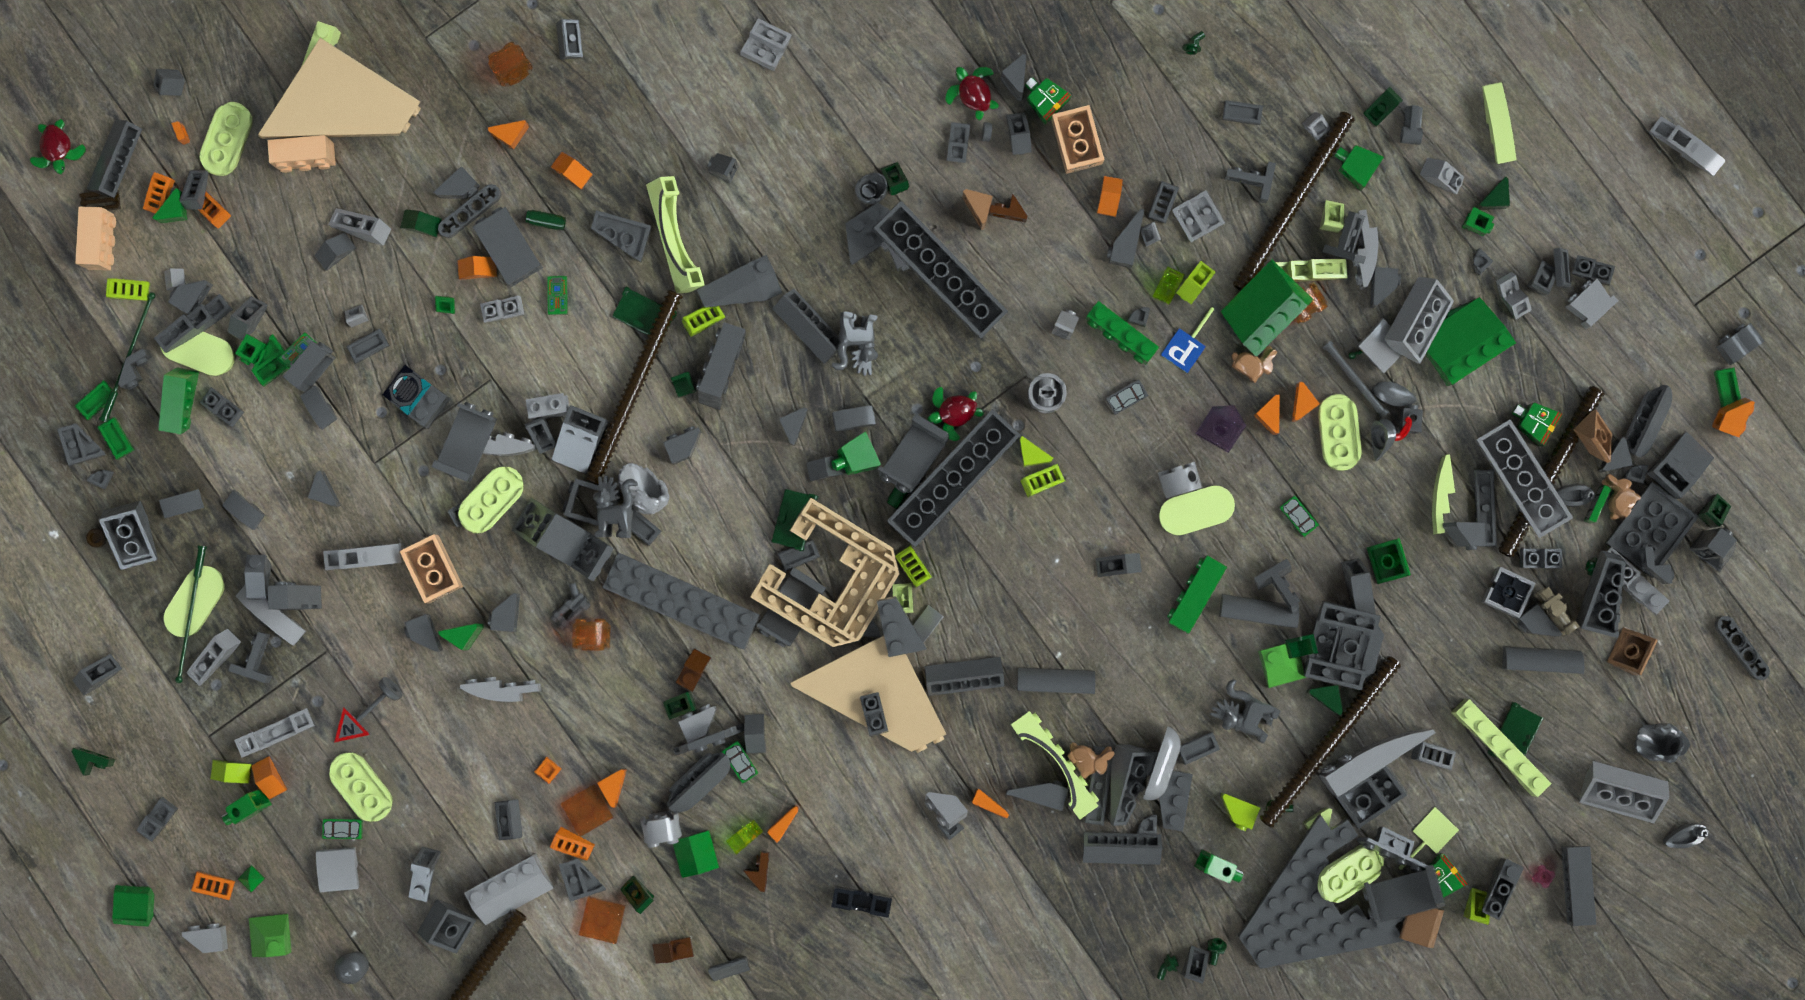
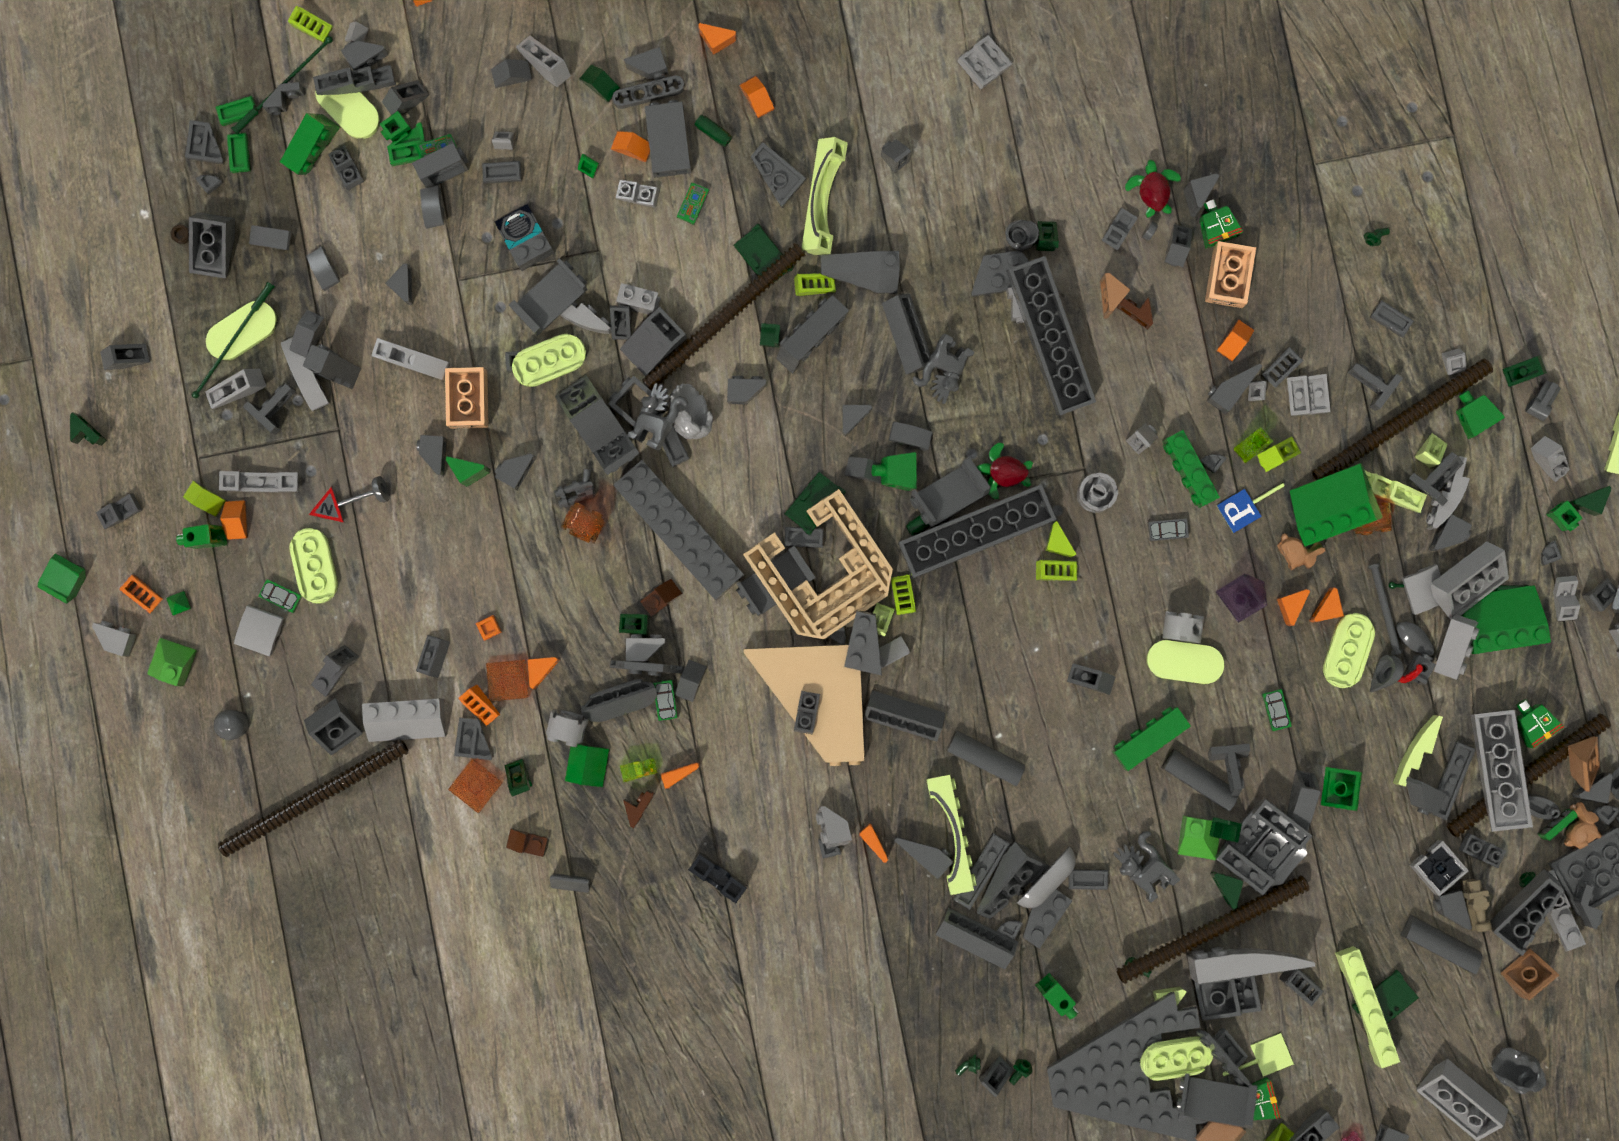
camera: 25 degrees right, 0 degrees up
(493, 689) = (472, 533): light grey slope -> none
(1088, 761) = (982, 845): medium nougat animal -> none
(1240, 812) = (1100, 955): lime slope -> none
(1433, 385) = (1457, 647): none -> light grey brick

